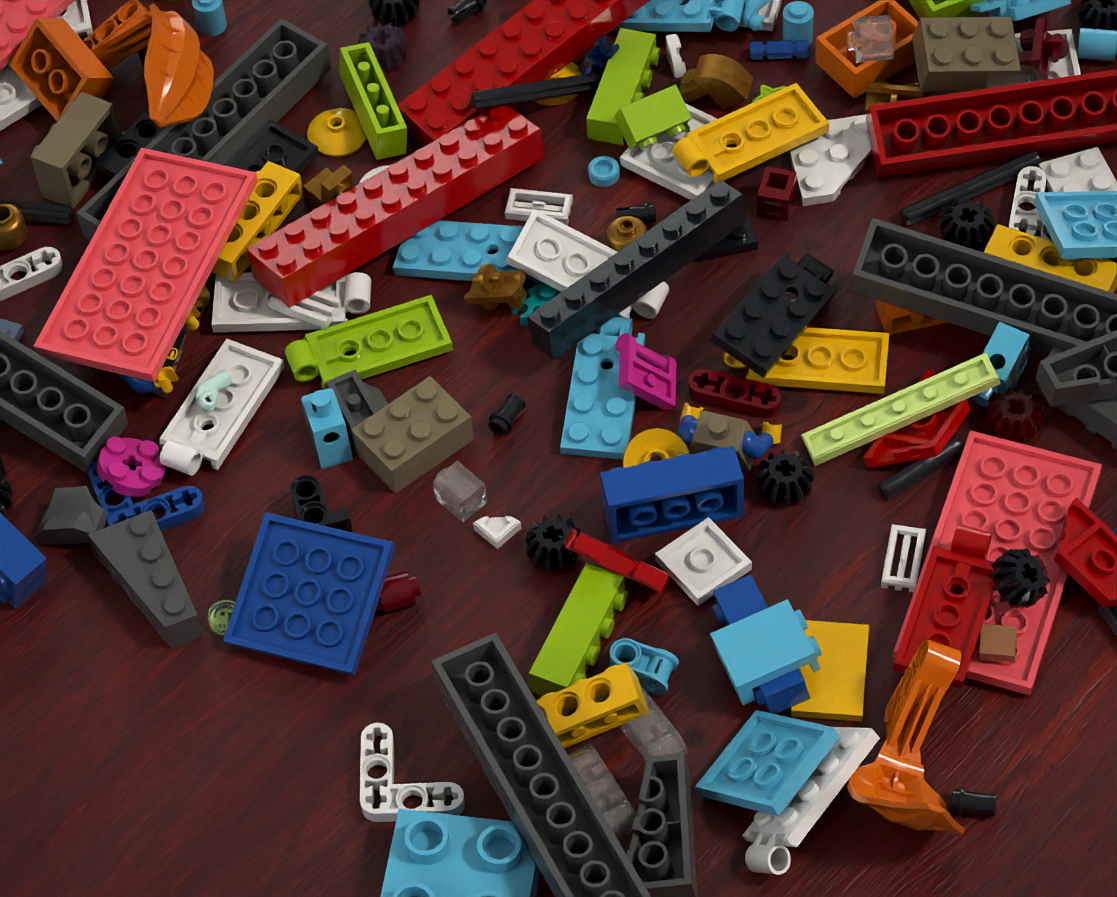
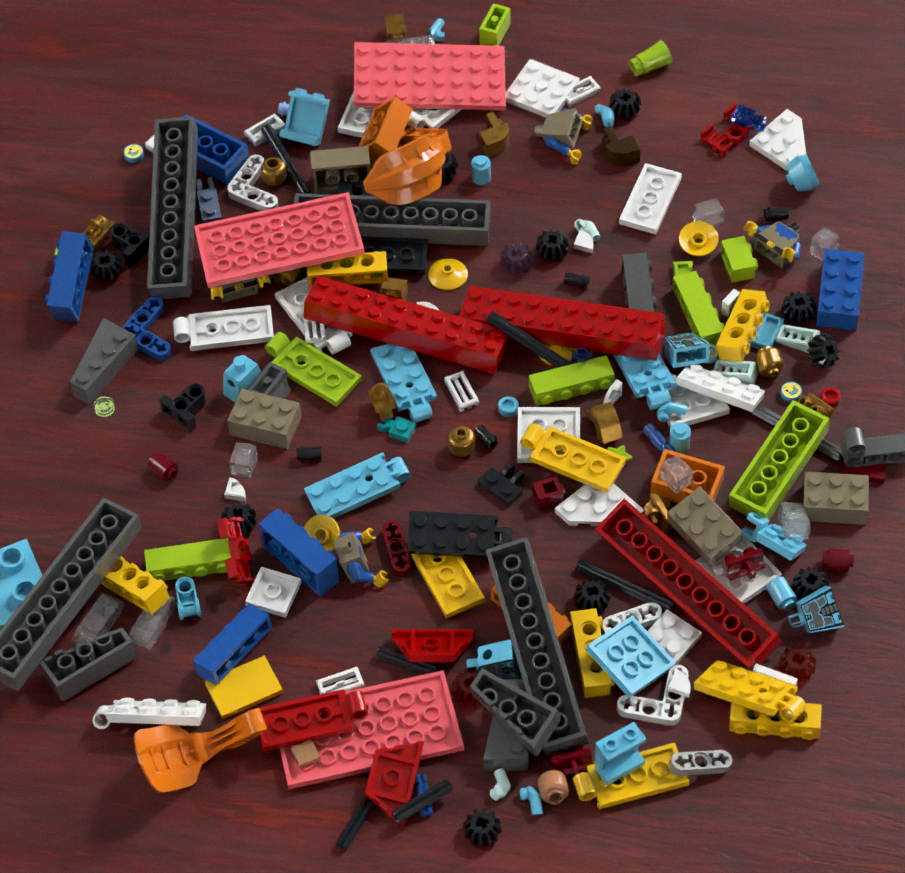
camera: 55 degrees right, 0 degrees up
(70, 517) = (116, 307): dark grey slope -> none
(131, 451) = (152, 309): dark pink plate -> none
(208, 390) = (228, 316): light aqua arm -> none
(309, 593) = (131, 430): blue plate -> none
(373, 101) = (470, 273): lime brick -> none
(393, 794) = (45, 536): white beam -> none
(564, 255) = (424, 425): white hinge -> none
(636, 269) = (434, 454): black brick -> none
(646, 373) = (367, 500): dark pink plate -> none
(653, 117) = (547, 403): lime brick -> none
(765, 648) = (224, 645): medium azure panel -> none
(767, 762) = (156, 684): medium azure plate -> none
(785, 477) = (352, 600): black gear -> none
(900, 409) = (431, 628): yellowish green tile -> none
(973, 802) = (199, 793): black pin -> none
(1019, 578) = (353, 736): black gear -> none

